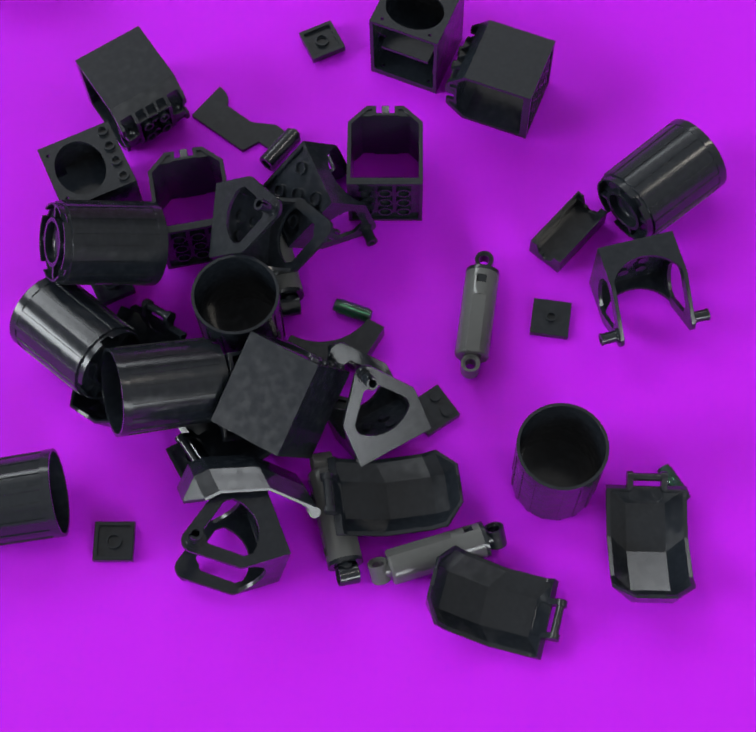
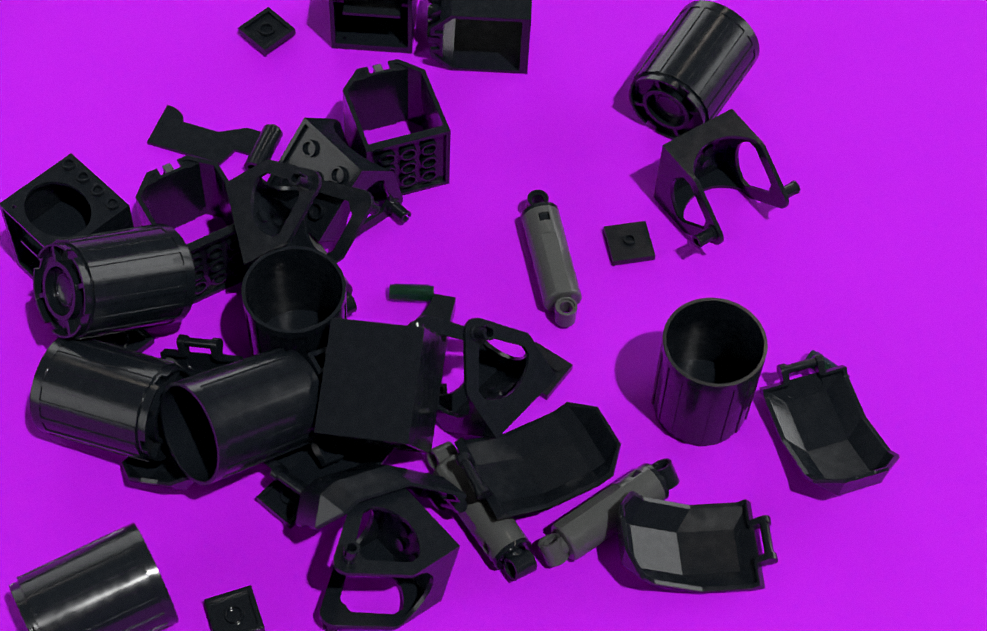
camera: 25 degrees left, 10 degrees down
(132, 88) = (76, 113): black container -> none
(567, 232) = (612, 152): black brick -> none

